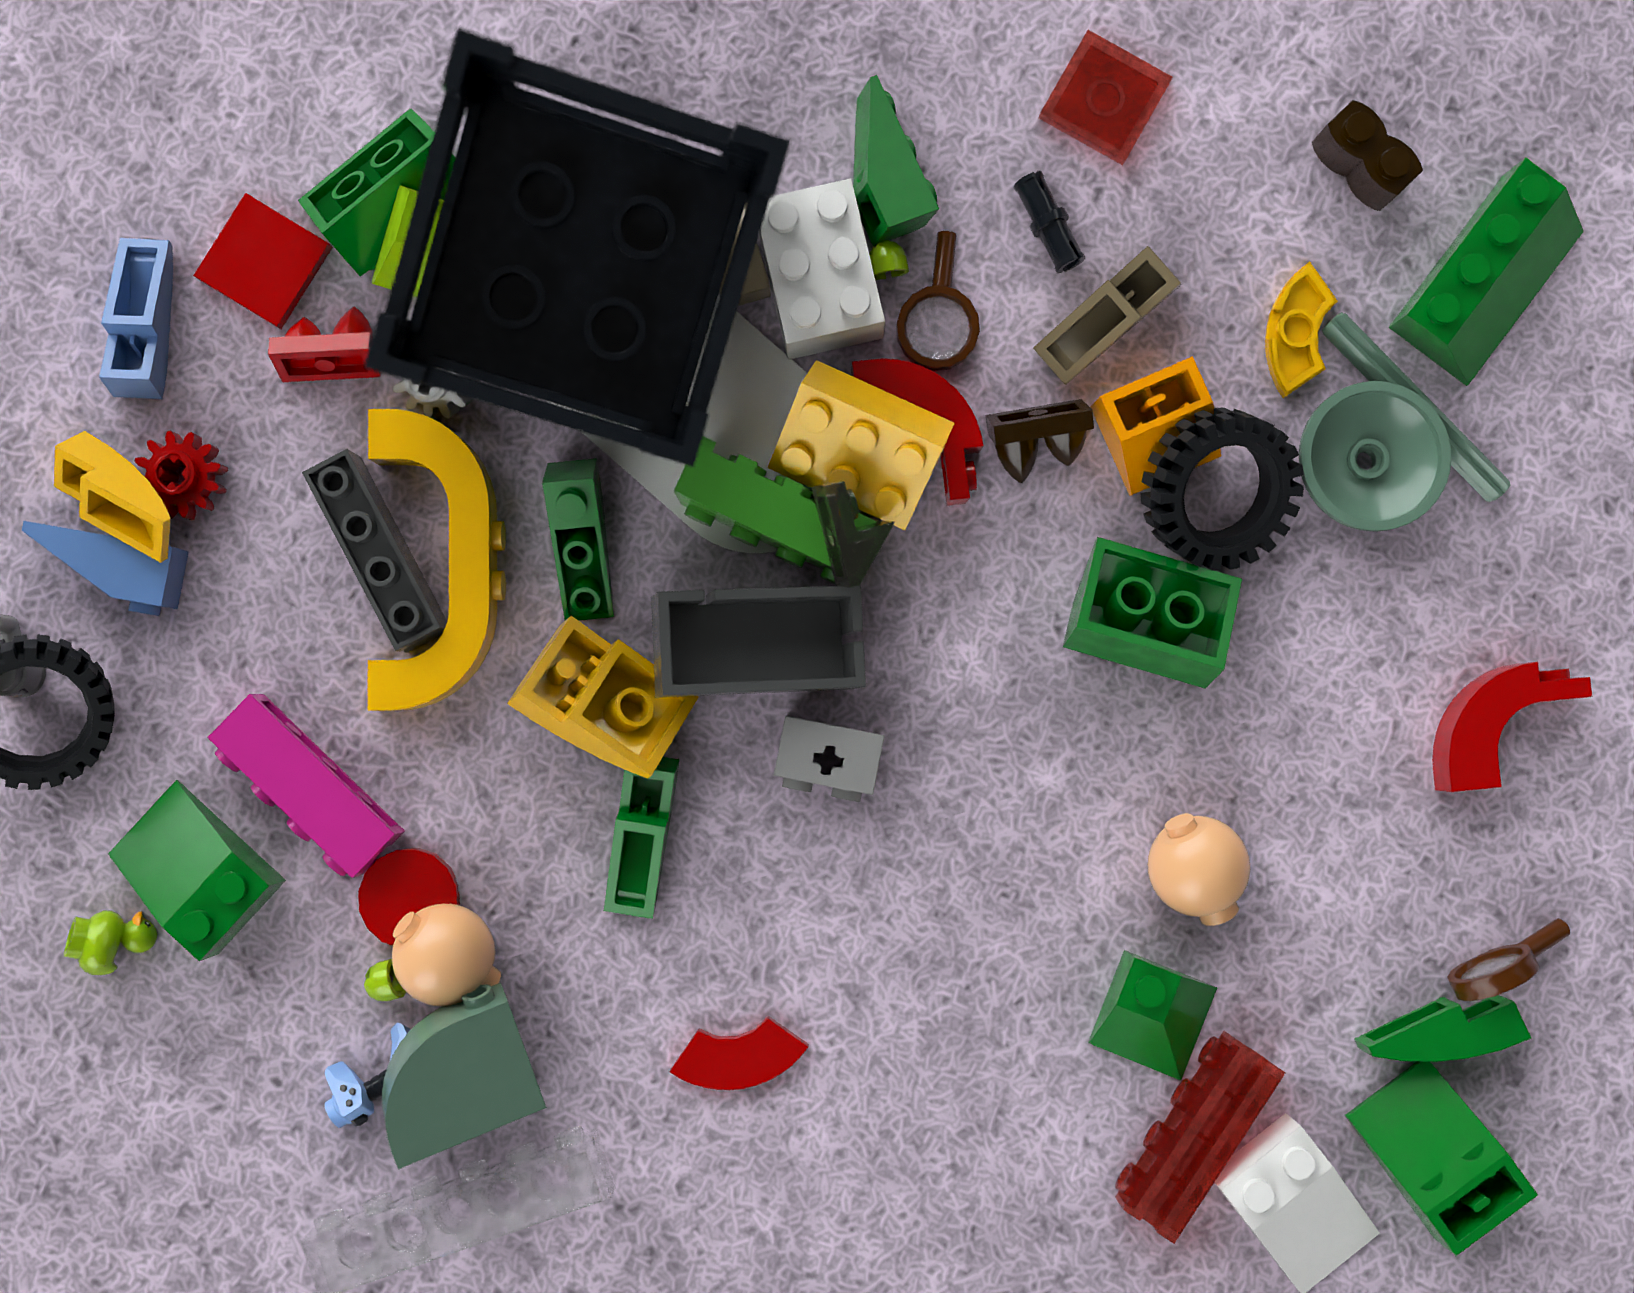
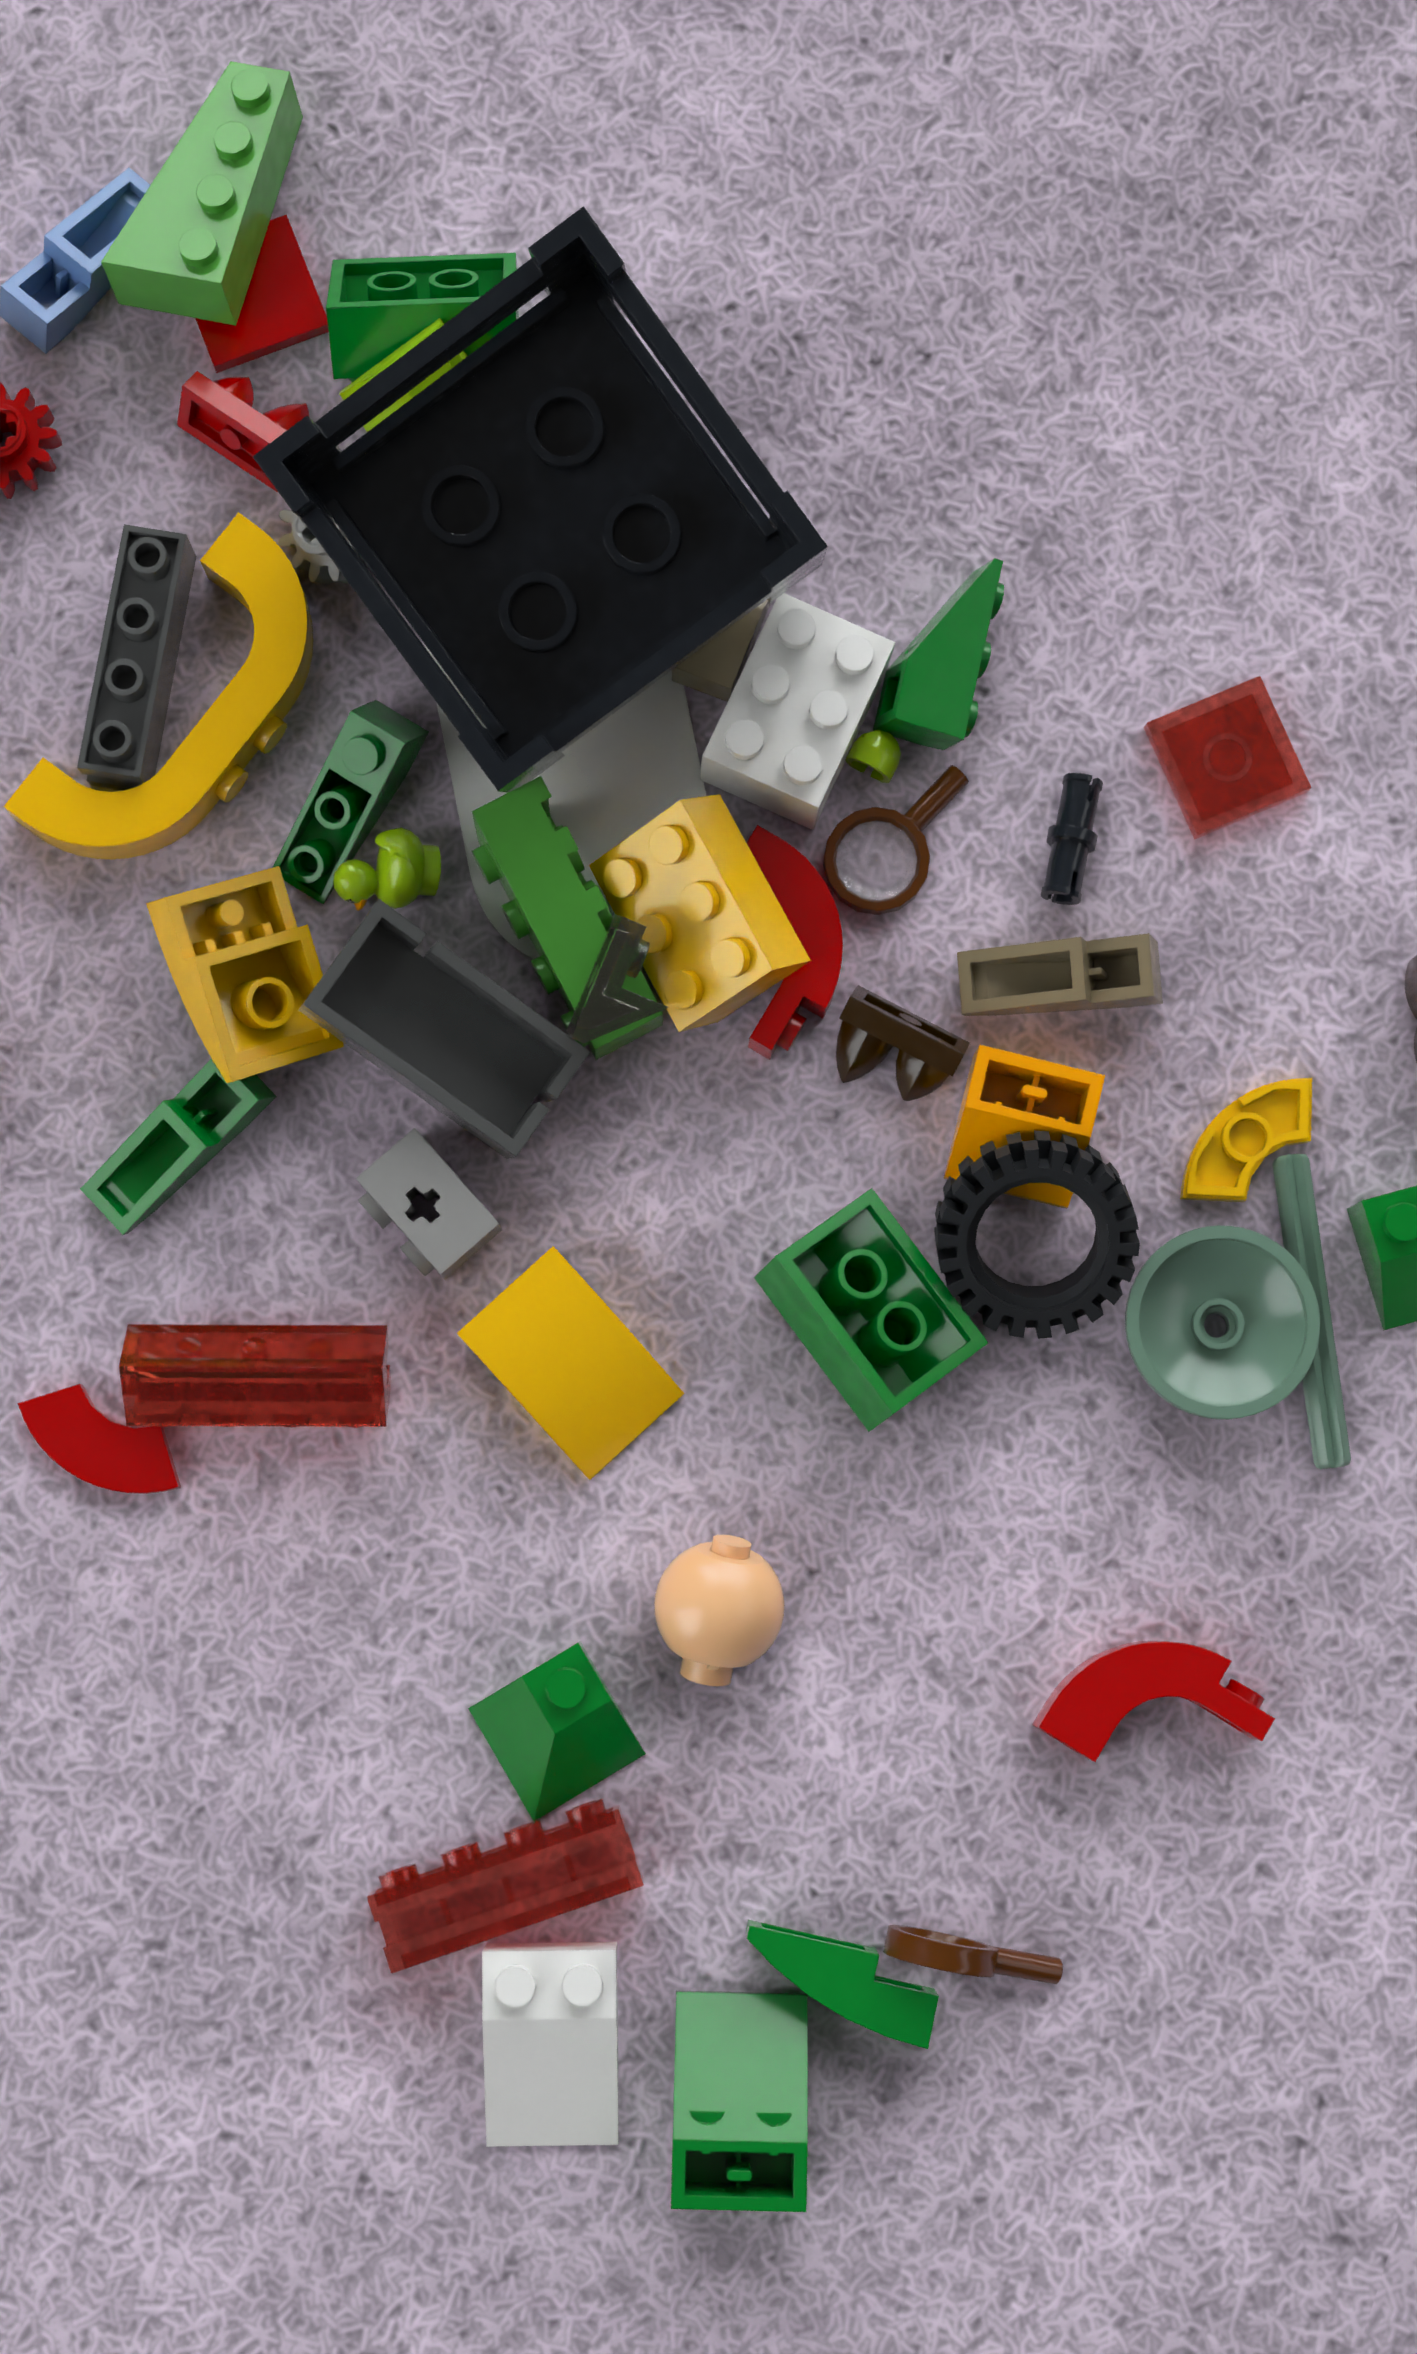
camera: 40 degrees right, 5 degrees down
(191, 220) = (211, 203): none -> bright green wedge
(650, 562) = (401, 871): none -> lime animal
(805, 944) = (255, 1375): none -> clear red brick
(991, 786) = (570, 1362): none -> yellow slope

